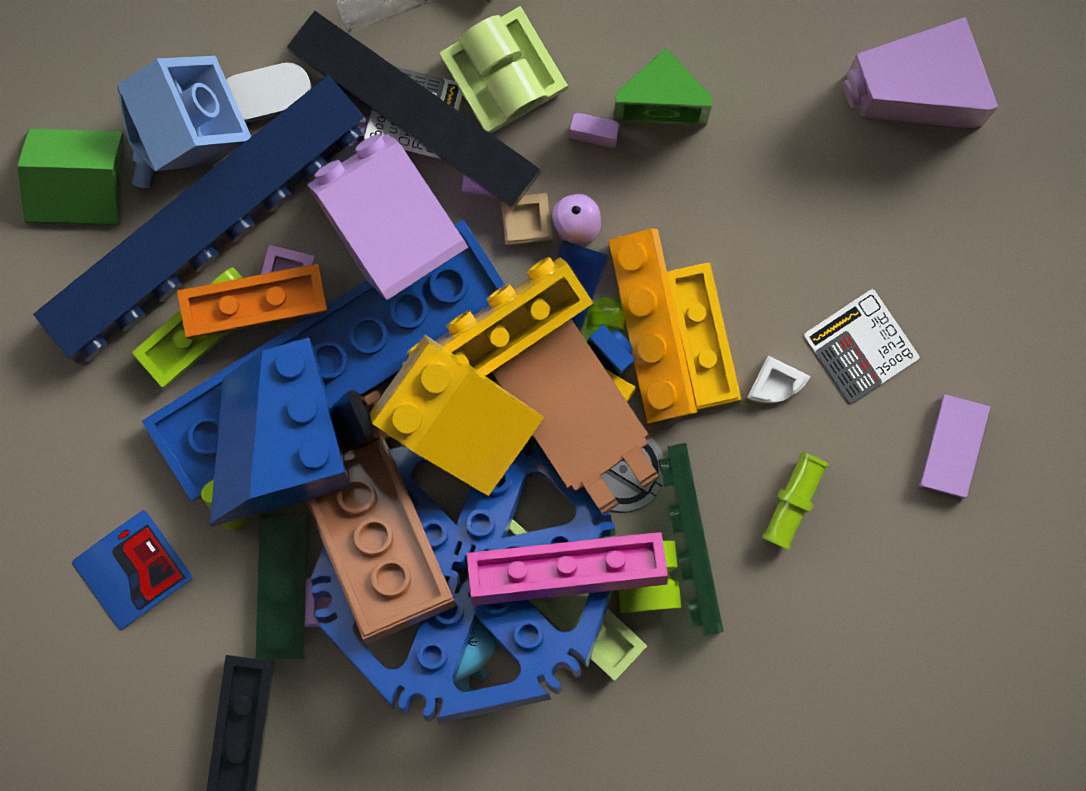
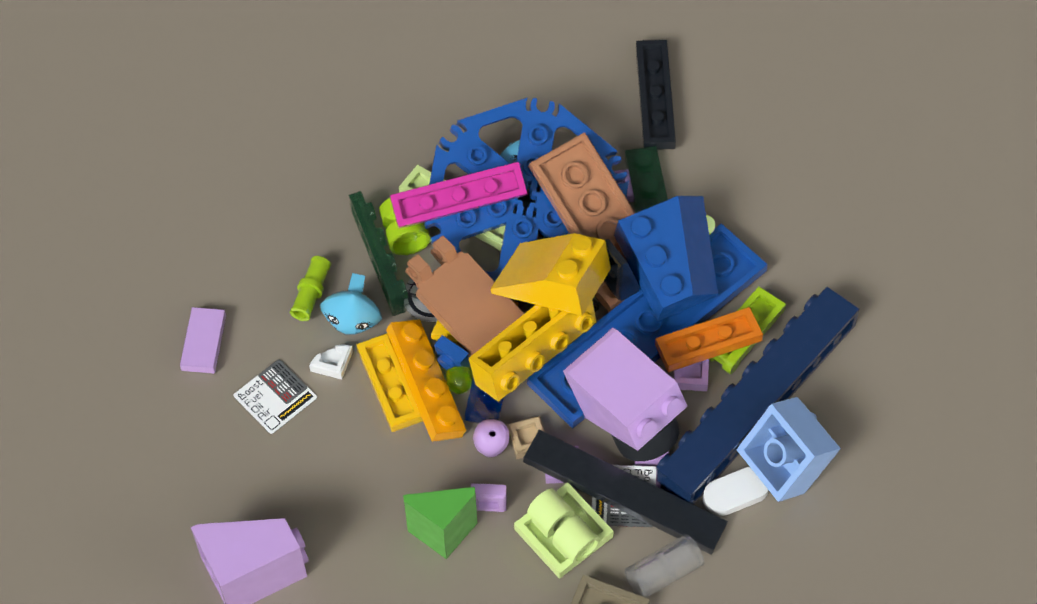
camera: 170 degrees right, 25 degrees down
(71, 176) = (862, 416): bright green slope -> none
(132, 569) = (750, 189): sticker -> none
(742, 444) = (351, 310): none -> medium azure piece

